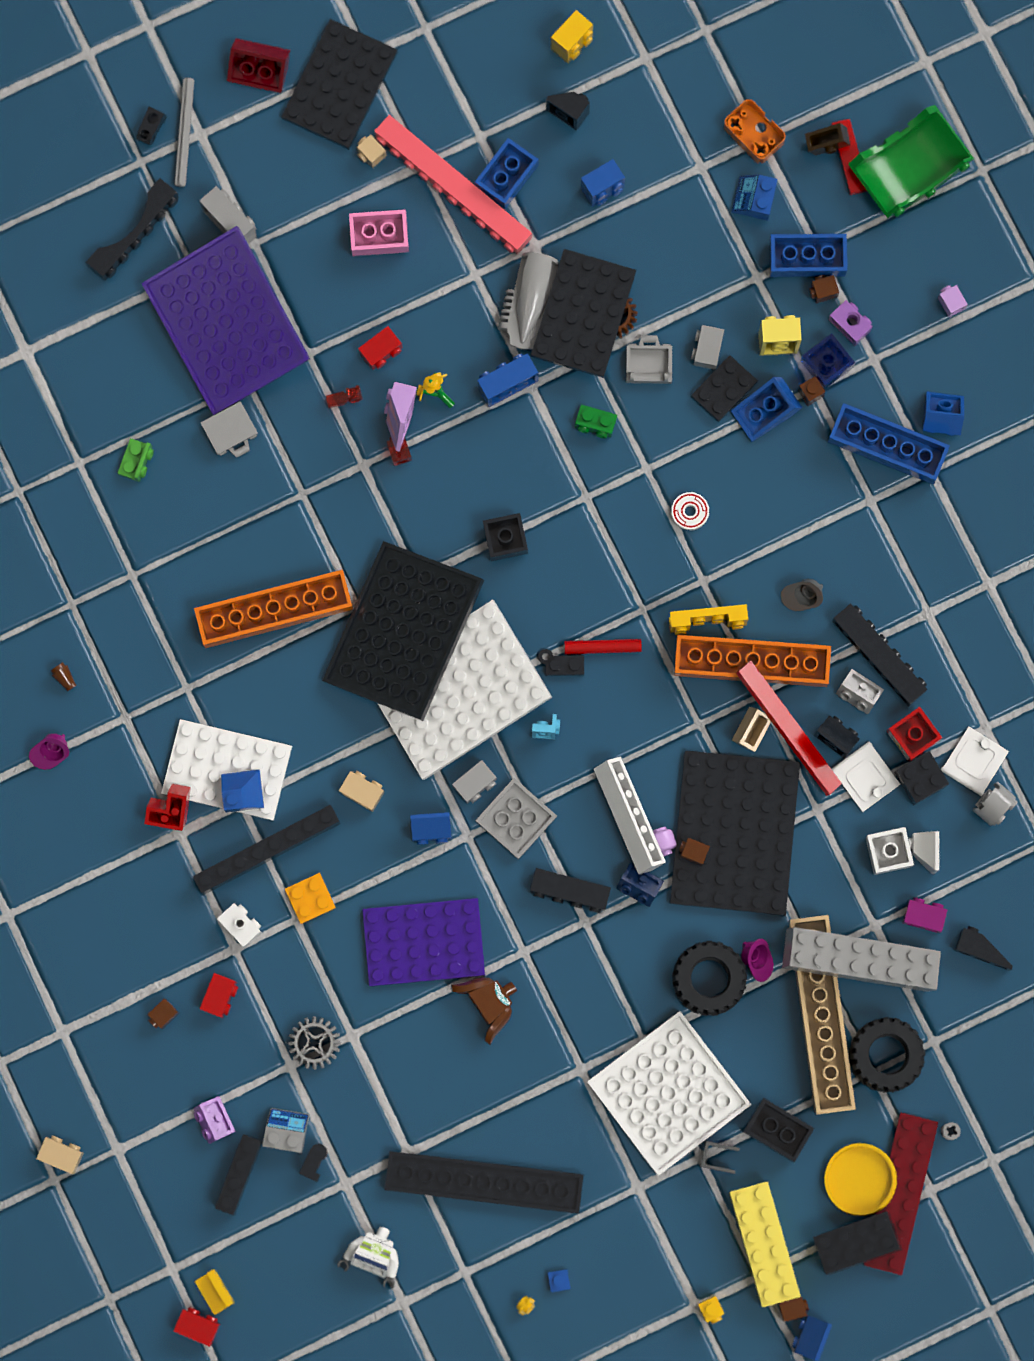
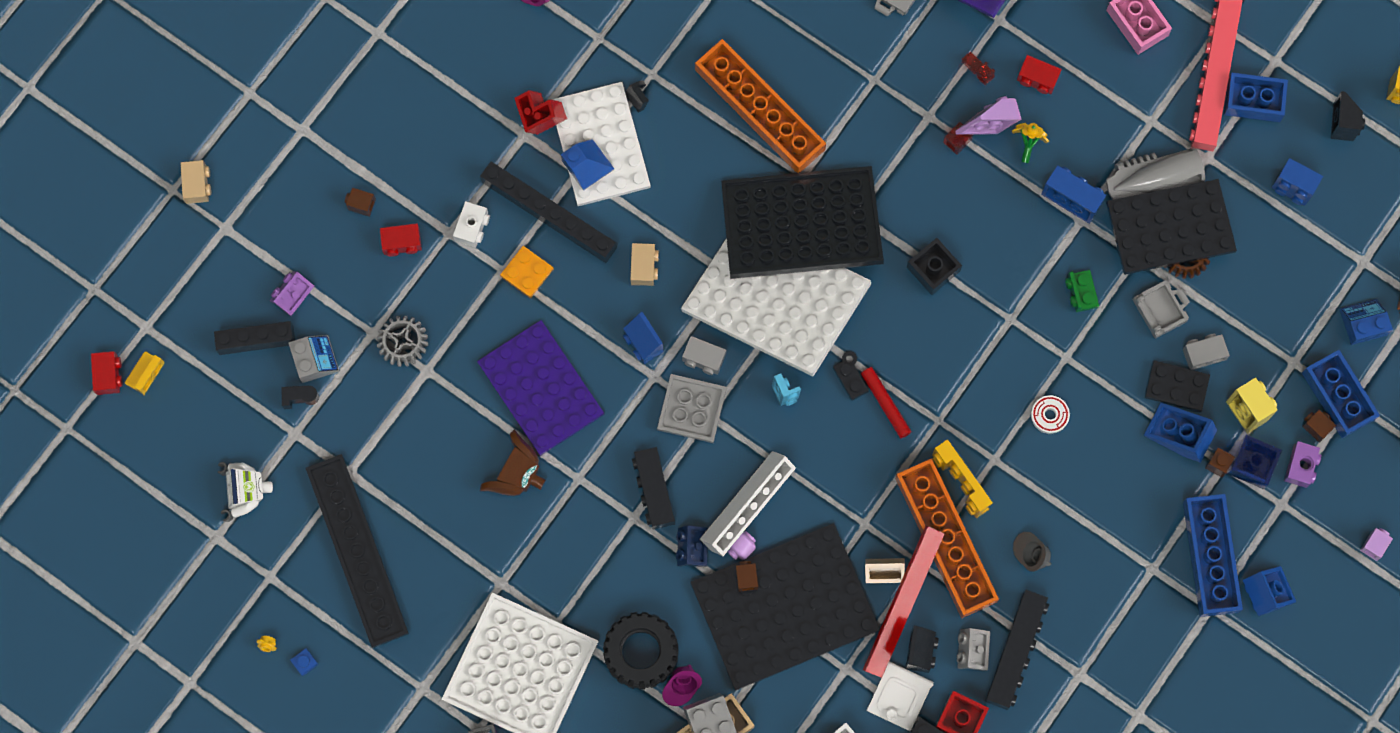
camera: 60 degrees right, 5 degrees down
(201, 713) = (636, 95): none -> black tile

